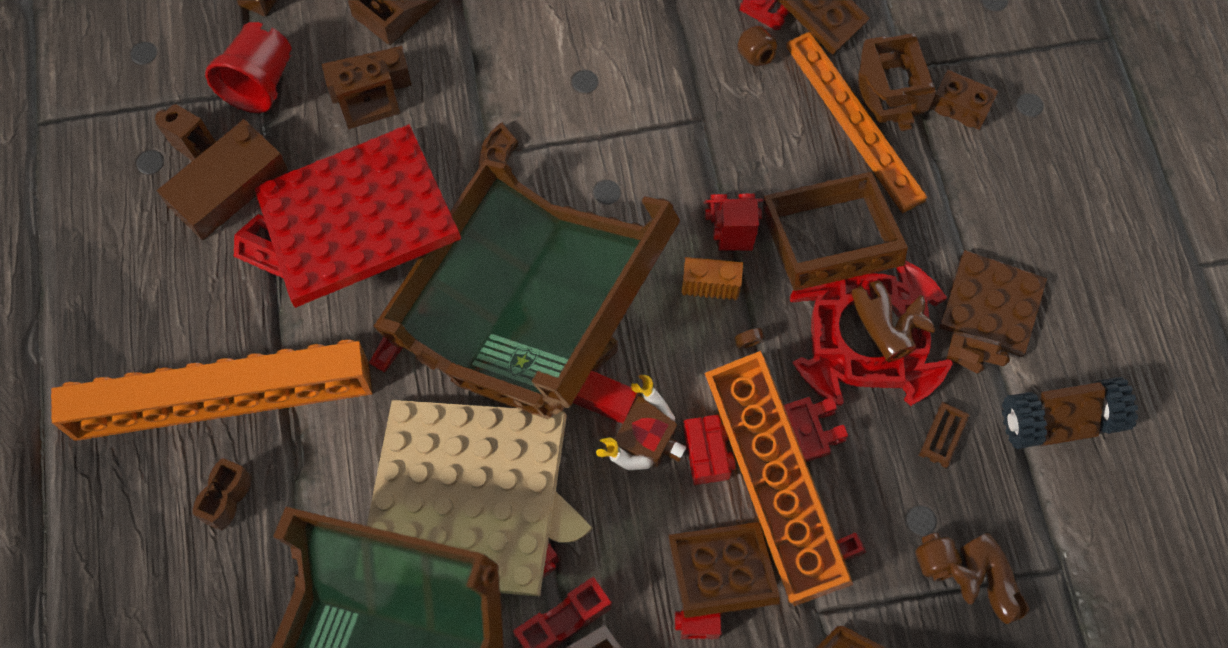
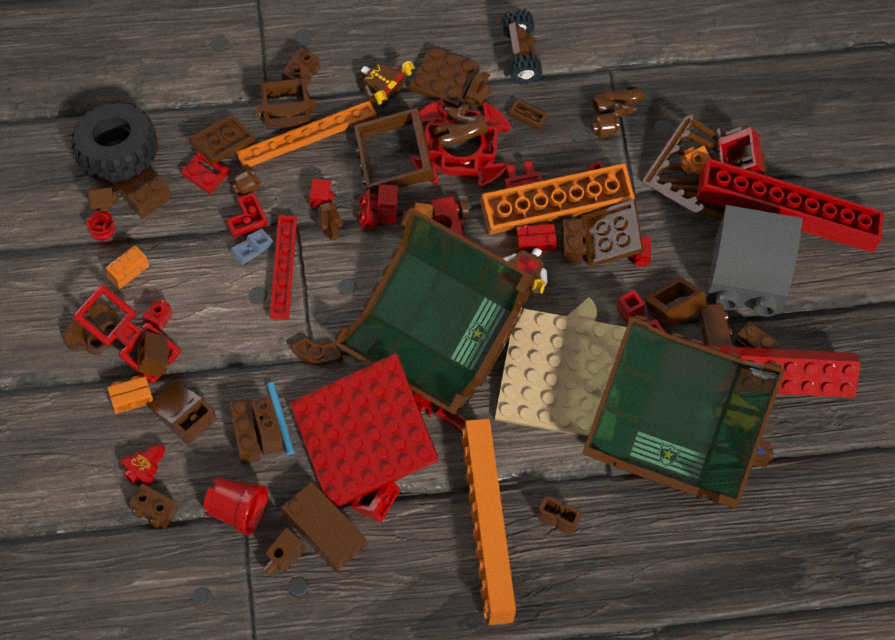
camera: 90 degrees left, 5 degrees down
(393, 120) = (281, 420): none -> dark azure bar
(626, 104) = (283, 267): none -> red plate
(657, 65) = (252, 247): none -> sand blue slope
(693, 328) = (446, 212): none -> red arch
(700, 57) = (250, 220): none -> red brick
(707, 507) = (572, 241): none -> reddish brown brick
(715, 155) = (329, 220): none -> reddish brown rock
(750, 141) = (321, 193): none -> red brick
(959, 212) = (384, 81): none -> reddish brown torso

